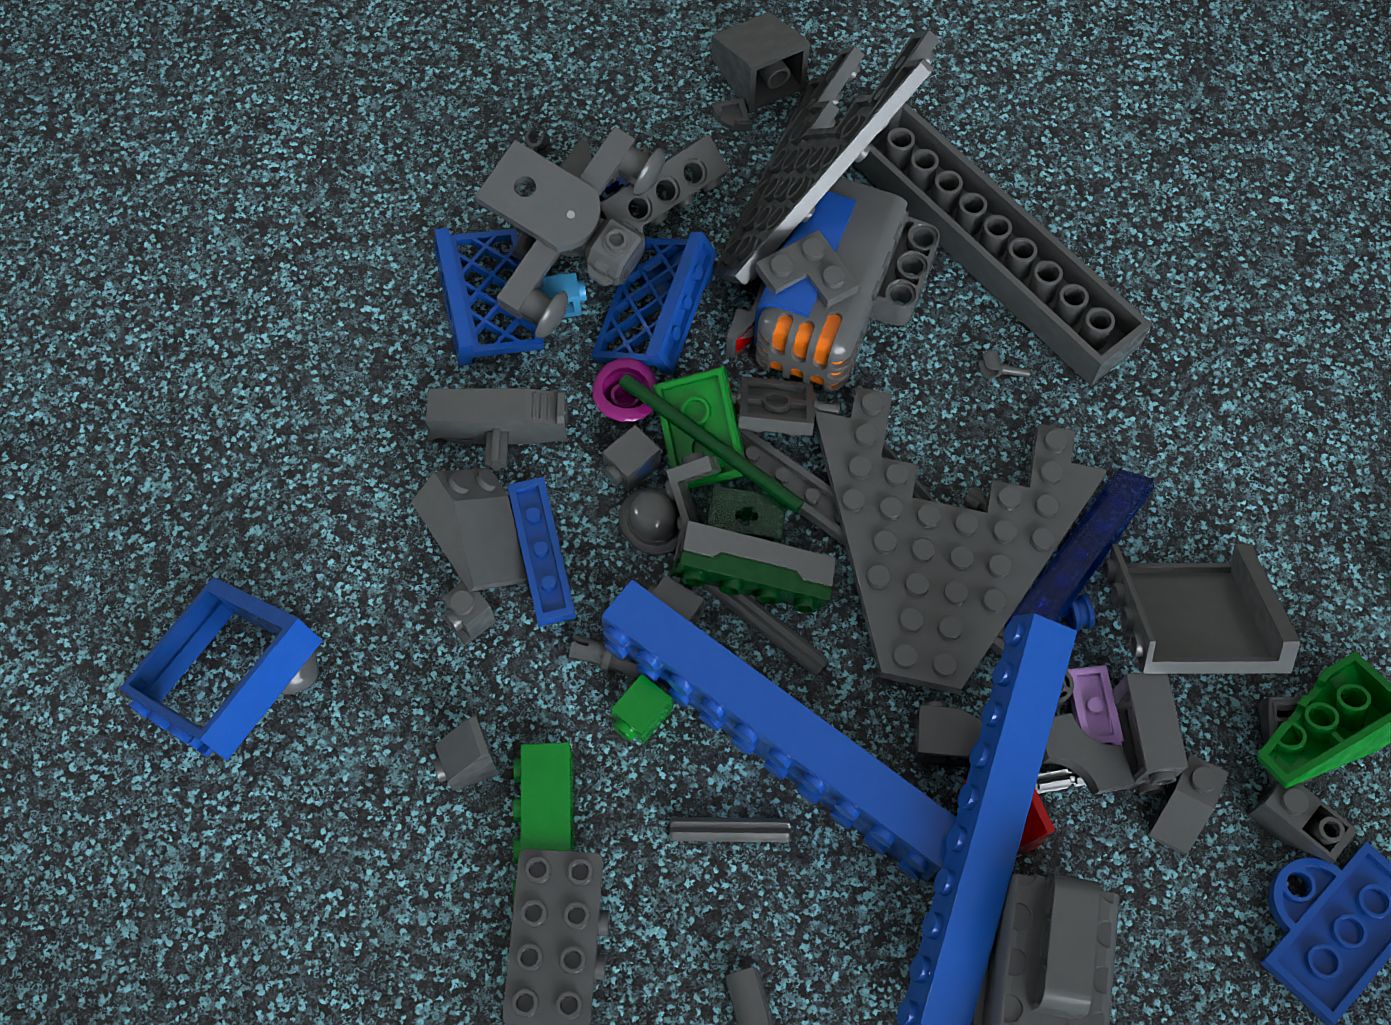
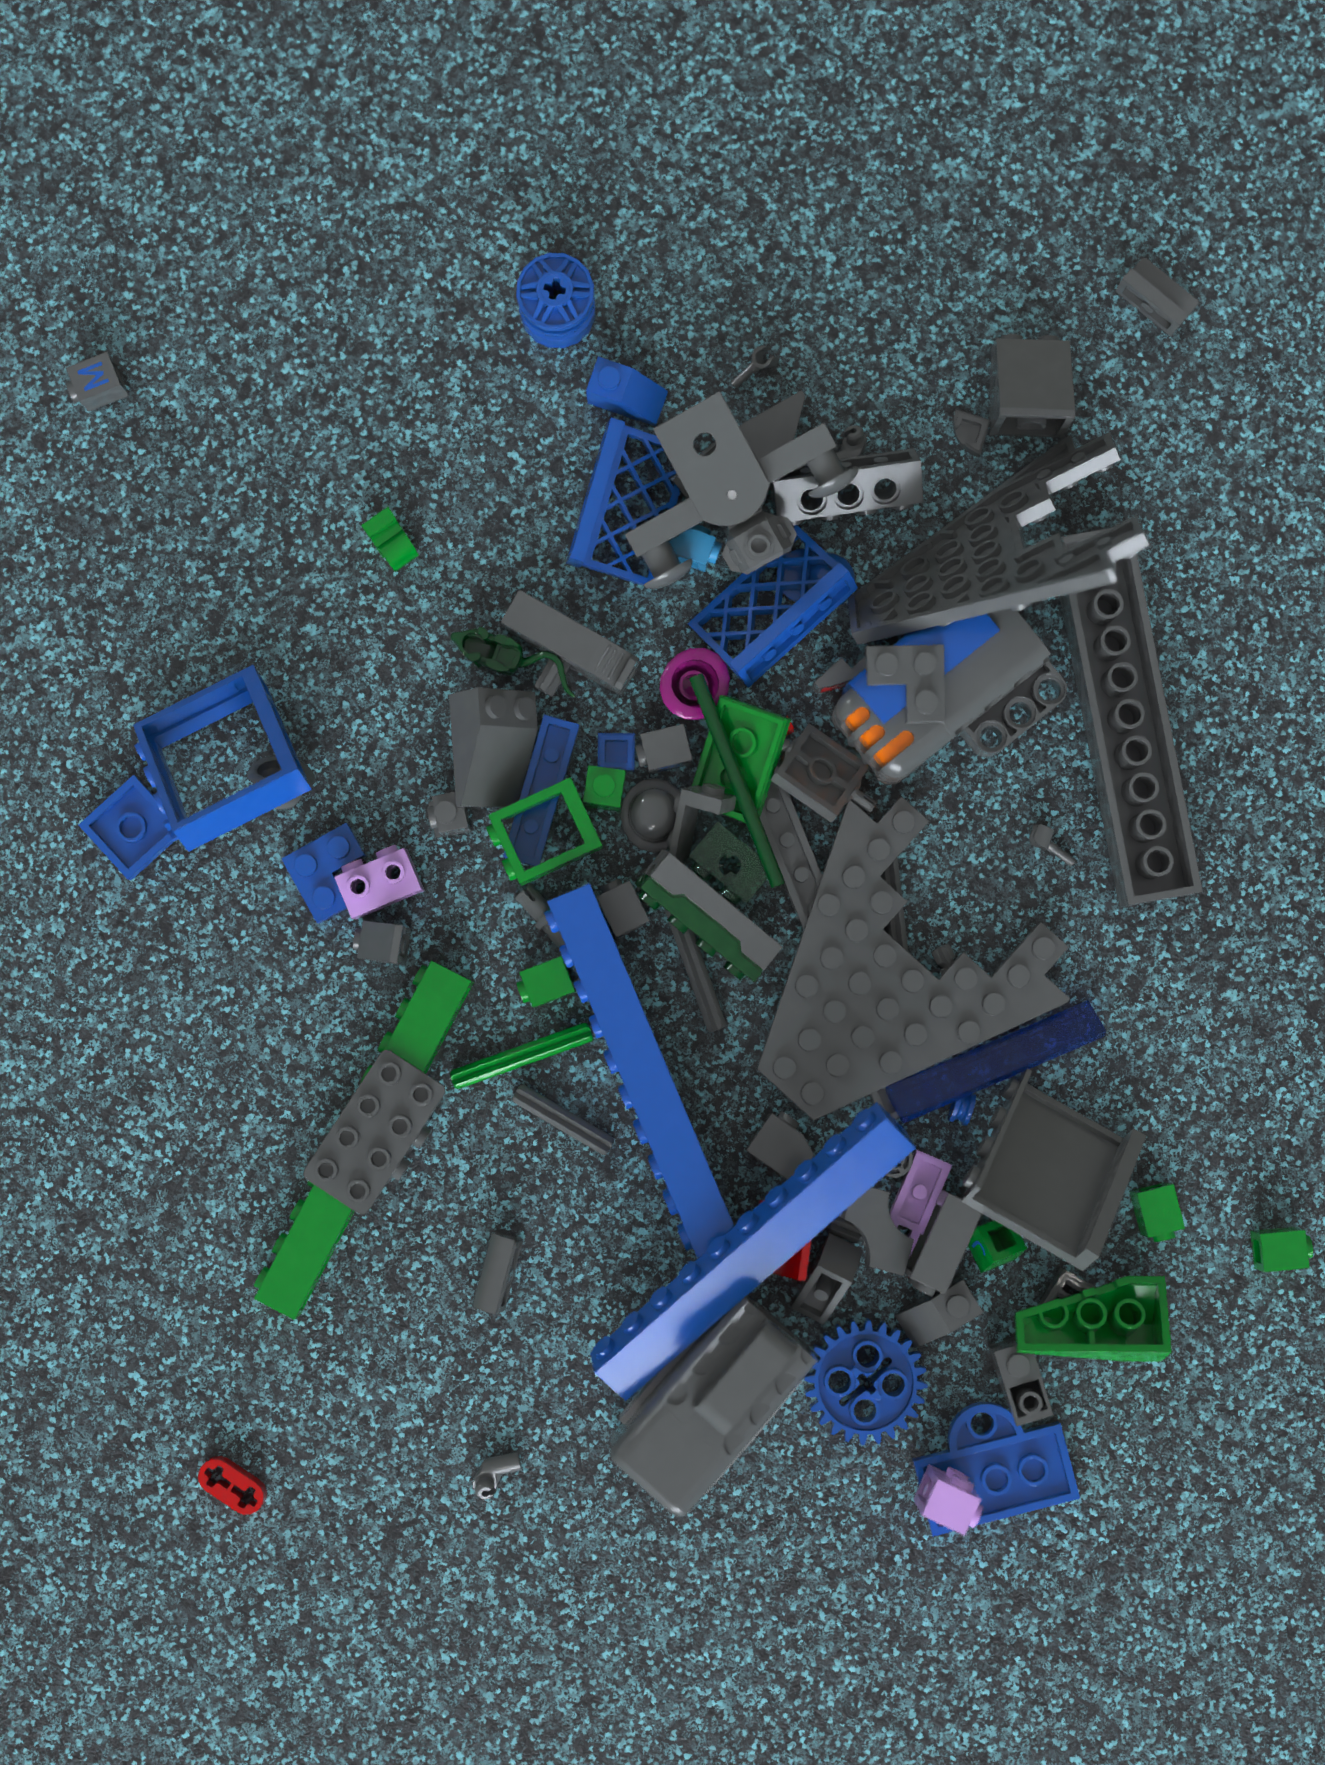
camera: 30 degrees right, 20 degrees up
(162, 788) = (129, 828): none -> blue plate
(290, 418) = (390, 539): none -> green leg
(340, 172) = (558, 320): none -> blue wheel
(364, 728) = (314, 870): none -> blue plate
(432, 704) = (379, 886): none -> lavender brick
(434, 208) = (625, 392): none -> blue slope
(439, 453) = (501, 653): none -> dark green animal
(584, 542) = (579, 815): none -> green window
(589, 487) = (617, 751): none -> blue tile
(597, 516) = (604, 788): none -> green brick
(655, 793) = (521, 1055): none -> green axle
(1071, 845) = (827, 1279): none -> dark grey slope
(1197, 707) = (995, 1245): none -> green brick
(1204, 923) = (888, 1406): none -> blue gear
(1308, 604) = (1157, 1211): none -> green brick
(1329, 965) = (948, 1499): none -> lavender brick

